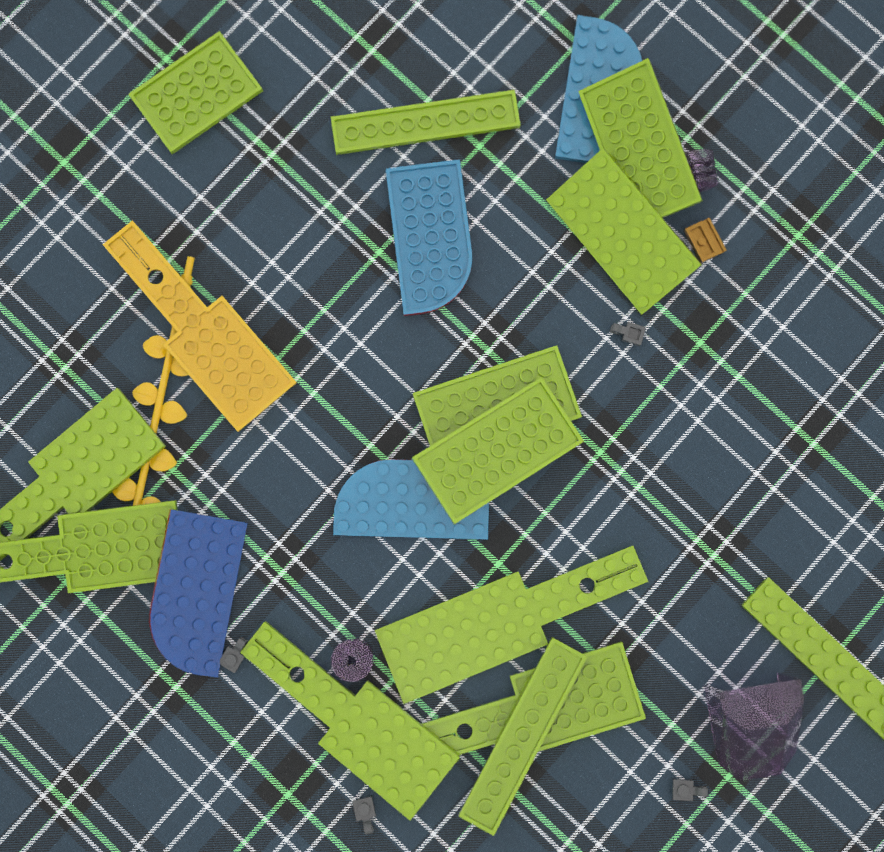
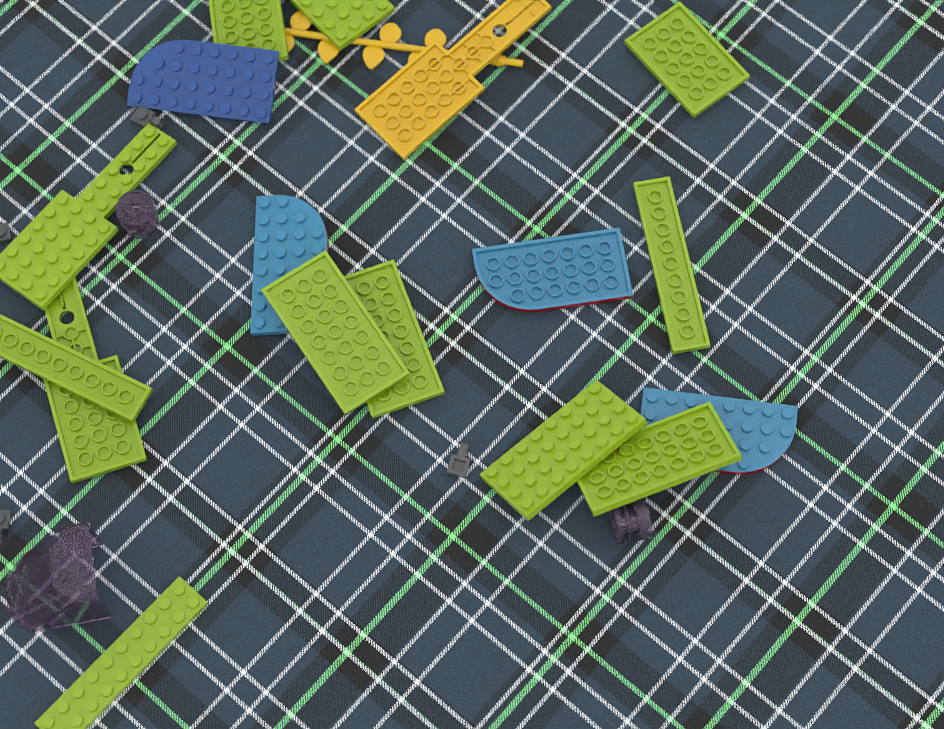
camera: 90 degrees right, 15 degrees down
(494, 623) = (170, 345): lime piece -> none
(705, 240) = (560, 536): pearl gold plate -> none

